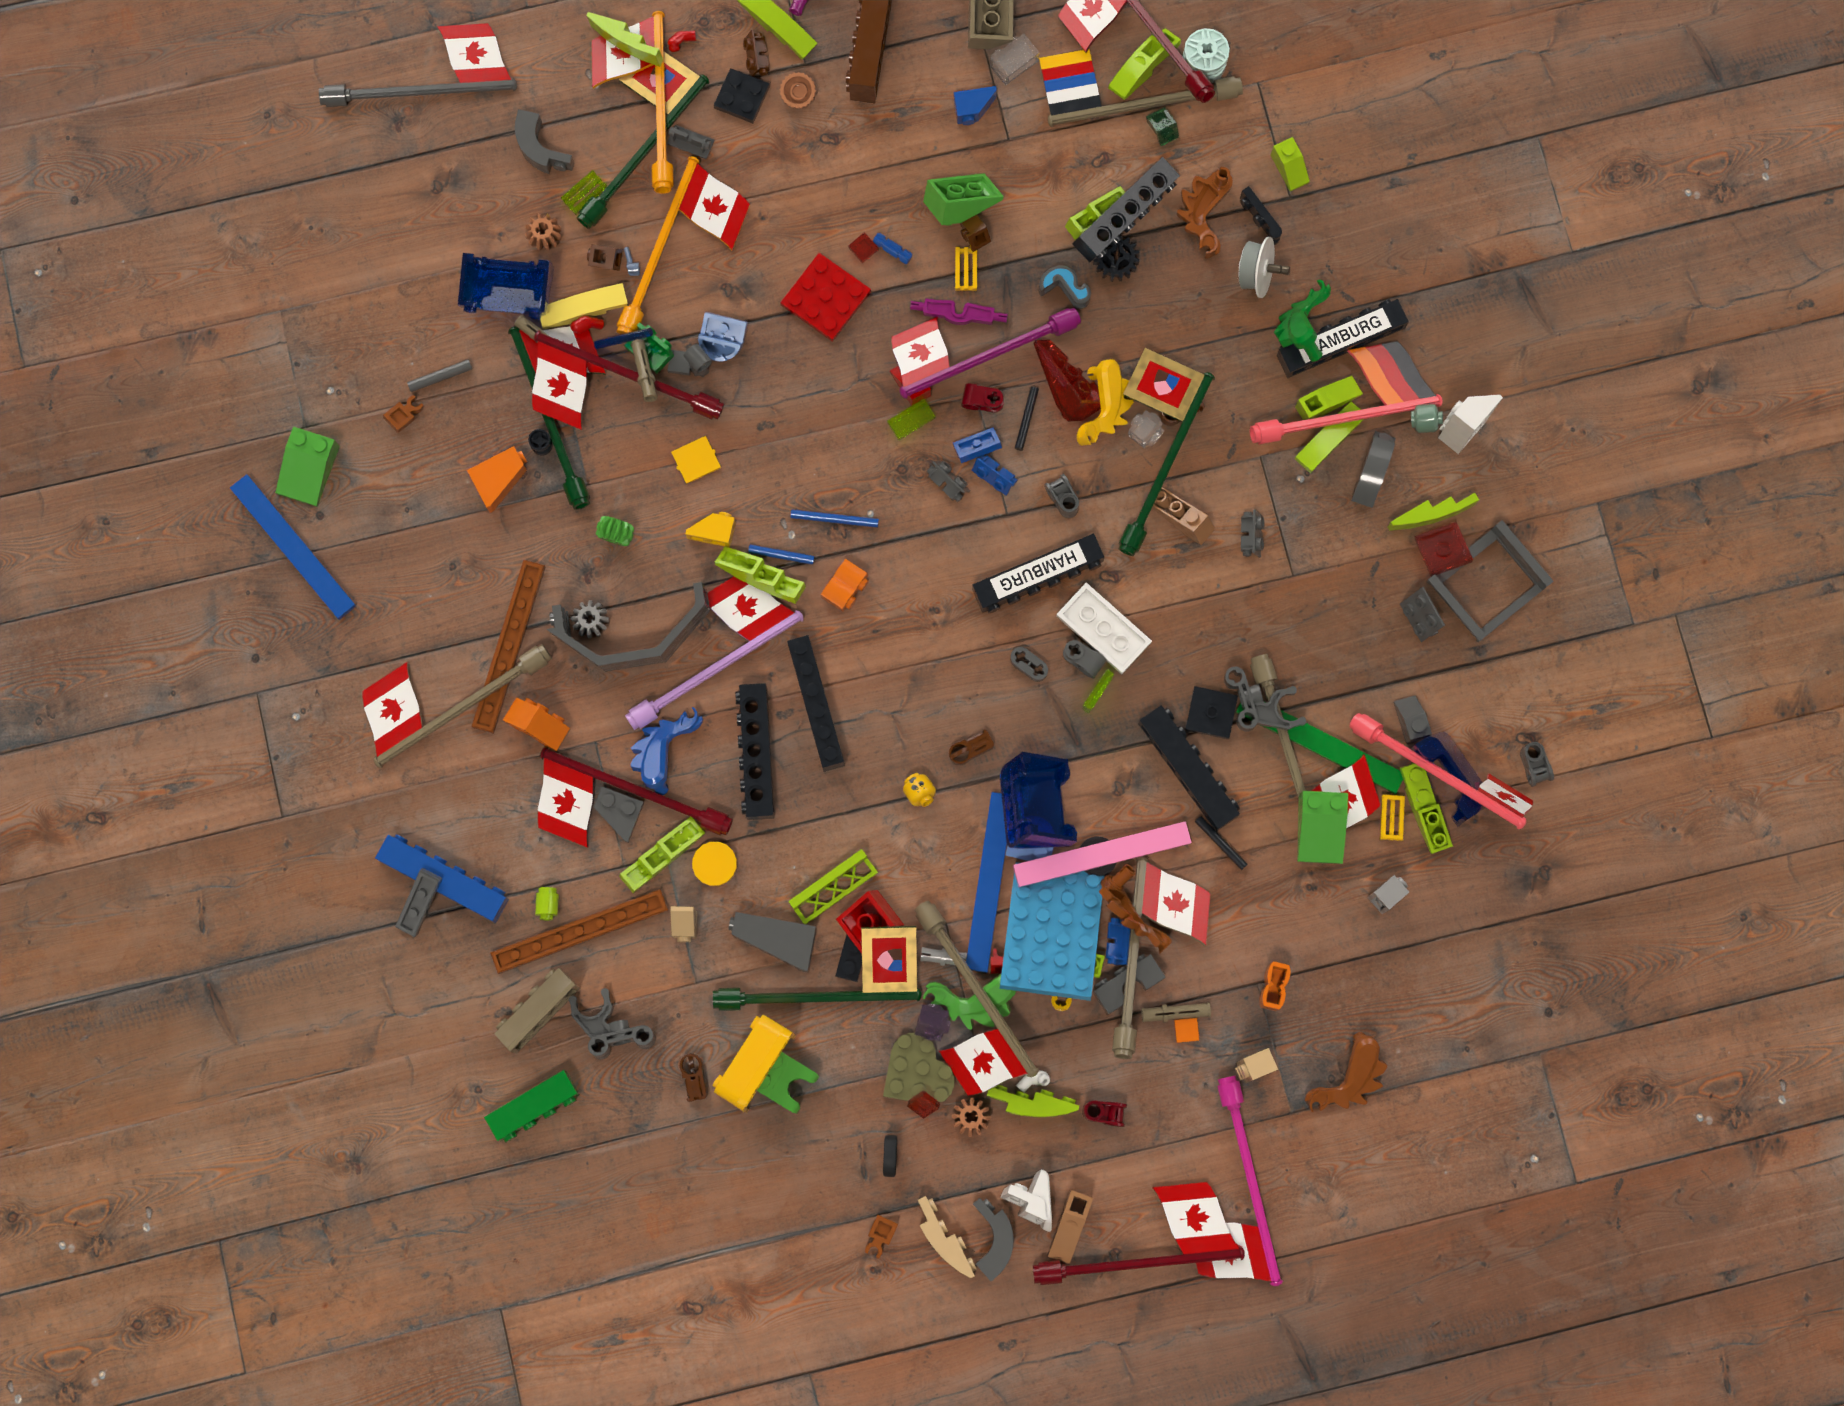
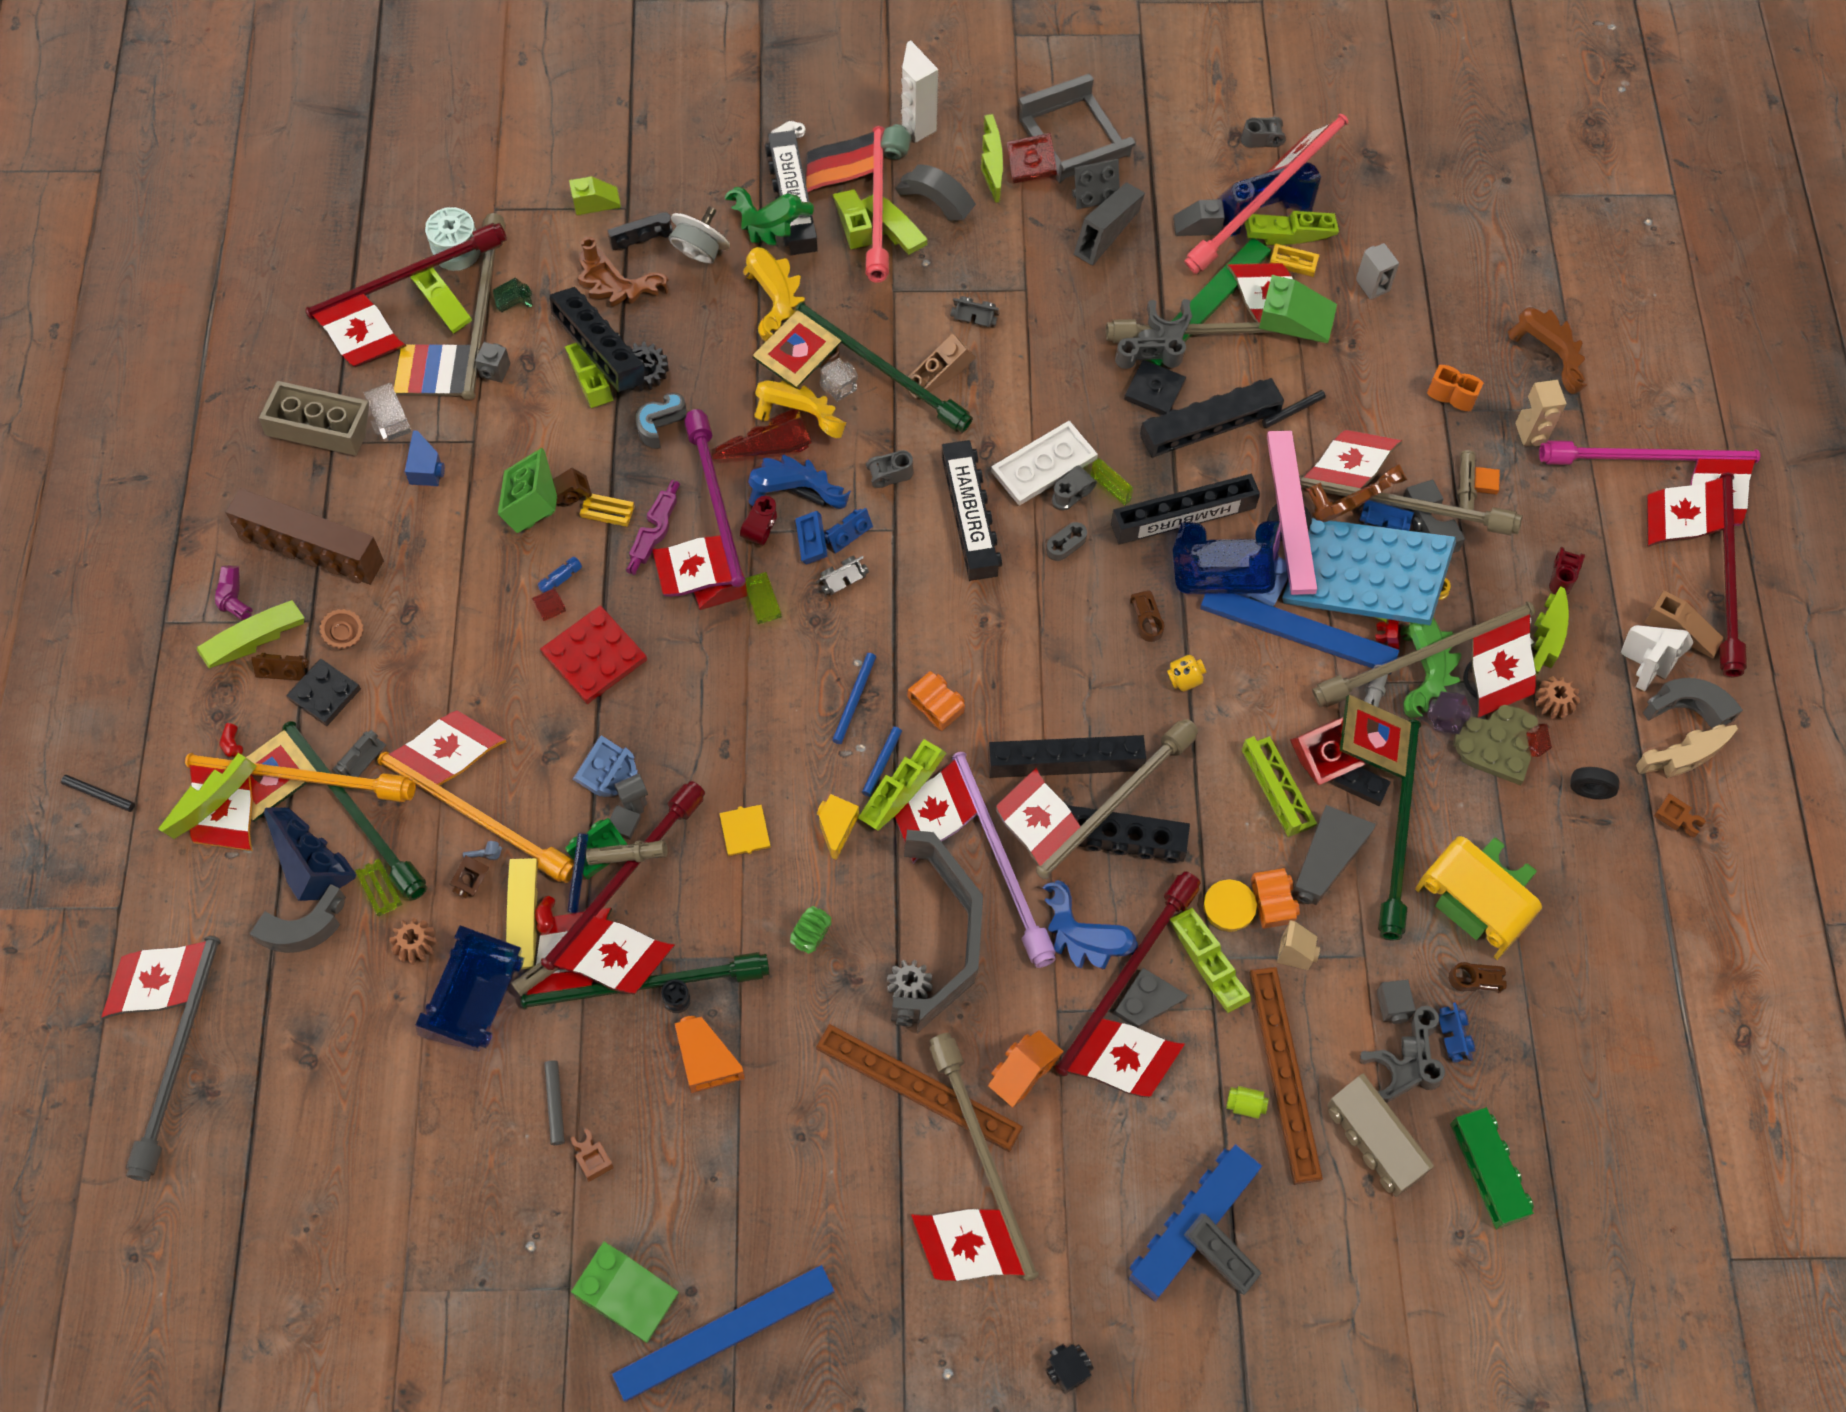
camera: 80 degrees left, 15 degrees down
(313, 803) = (1069, 1367): none -> black brick
(594, 130) = (304, 858): none -> dark blue wedge
(632, 1071) = (1460, 1043): none -> blue hinge
(656, 1011) = (1396, 1001): none -> dark grey brick
(726, 898) = (1274, 898): none -> orange brick
(744, 694) = (1046, 823): none -> flag
(1029, 406) = (791, 474): none -> blue animal
(1081, 759) = (1192, 505): none -> black brick
(1086, 130) = (492, 362): none -> dark grey brick
(1229, 354) = (774, 279): none -> yellow animal
(1384, 634) = (1107, 222): none -> dark grey slope
(1418, 318) = (790, 125): none -> white arm

